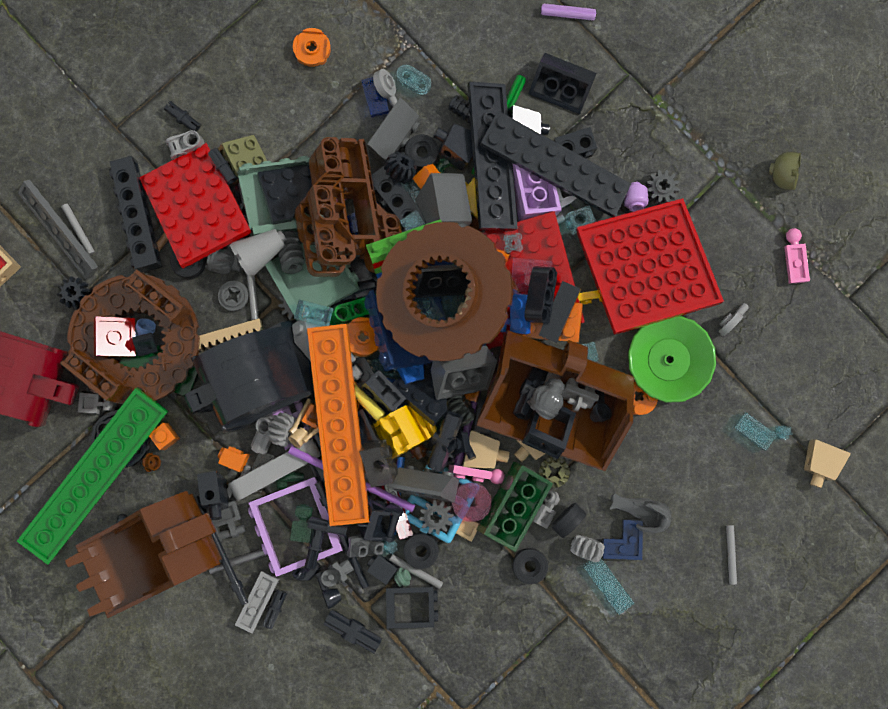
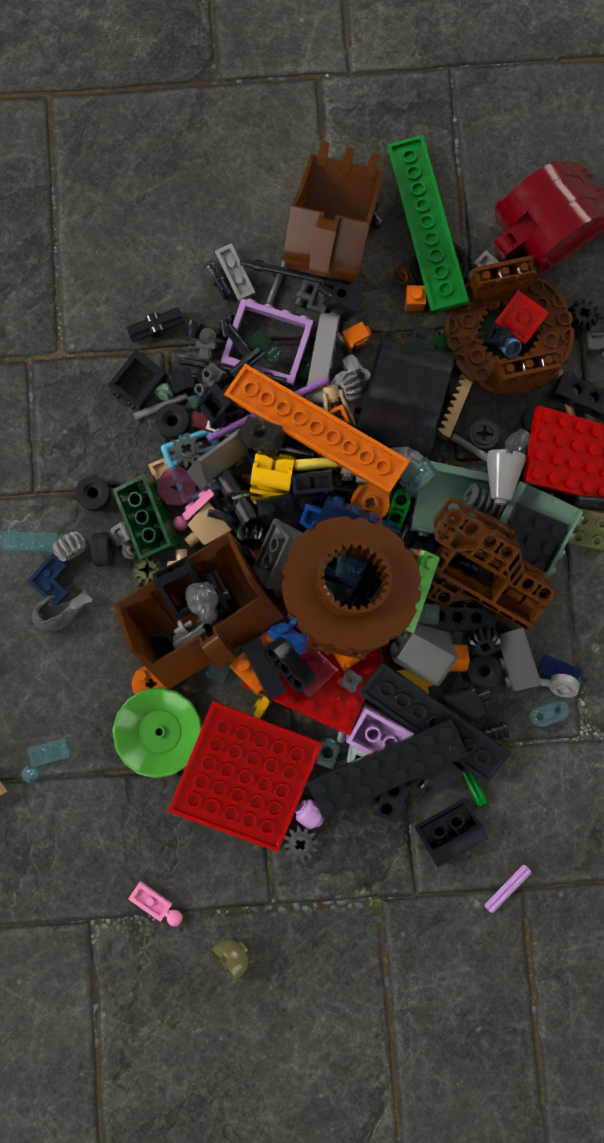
camera: 130 degrees right, 0 degrees up
(731, 321) = (148, 806): light grey piece -> none

